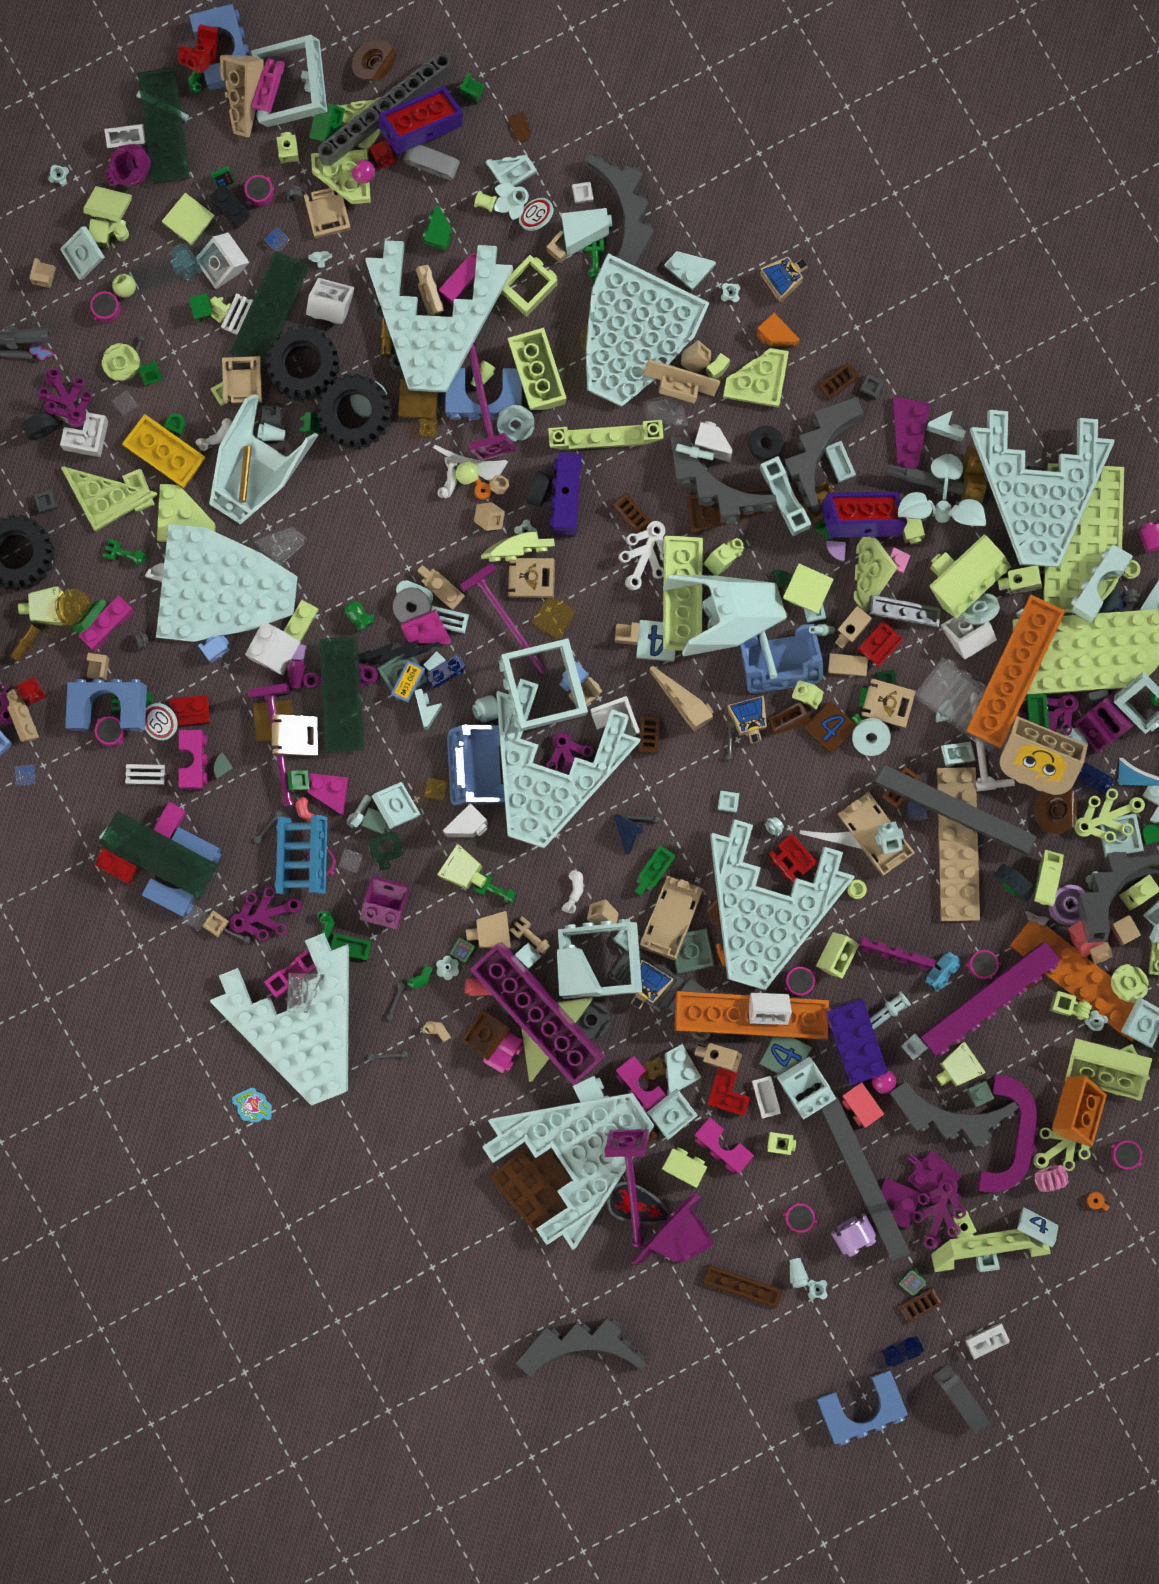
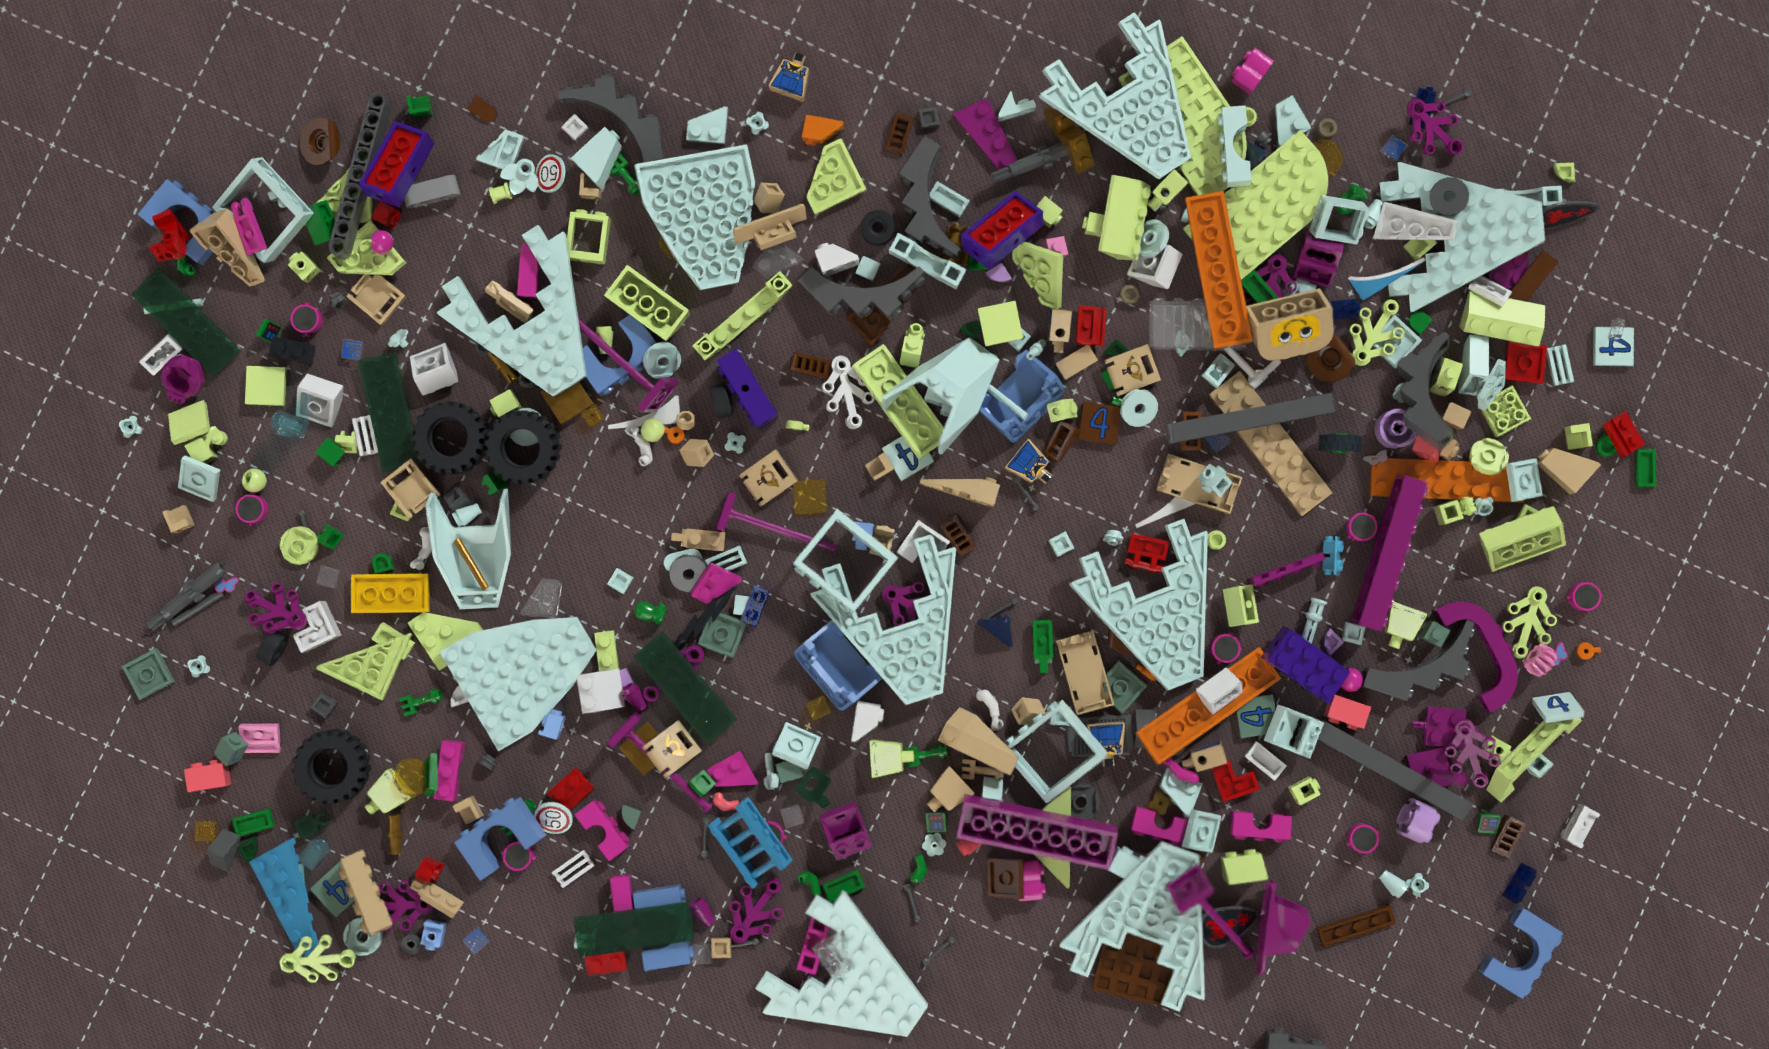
camera: 40 degrees left, 5 degrees up
(222, 884) = (702, 911): none -> magenta cone
(352, 574) = (620, 581): none -> light aqua tile
(365, 367) = (504, 404): none -> yellowish green brick
(408, 681) = (731, 637): tile -> none
(428, 713) = (766, 652): light aqua slope -> none
(436, 1028) = (961, 900): tan arm -> none
(439, 231) = (481, 246): green slope -> none
(486, 709) = (810, 613): light aqua head -> none
(516, 546) = (738, 462): yellowish green slope -> none
(543, 904) = (971, 736): none -> tan wedge
(575, 973) = (1044, 777): light aqua slope -> none
(584, 552) = (796, 425): none -> yellowish green piece
(689, 1055) = (1180, 773): none -> dark pink arm
(695, 451) = (826, 278): light aqua bar -> none
(718, 367) = (793, 193): yellowish green piece -> none
(734, 470) = (867, 268): none -> light aqua tile
(891, 1041) = (1332, 641): none -> lavender tile
(904, 611) = (1091, 285): tile -> none
(917, 507) = (1042, 192): light aqua plant -> none
(930, 642) = (1129, 294): none -> dark tan tile
(962, 1399) = (1594, 888): dark grey arch -> none
(1048, 877) = (1365, 419): yellowish green slope -> none
(1071, 1189) = (1561, 653): none -> medium blue sticker
(1079, 1110) = (1523, 589): orange slope -> none
(1097, 695) = (1295, 241): dark grey tile -> none

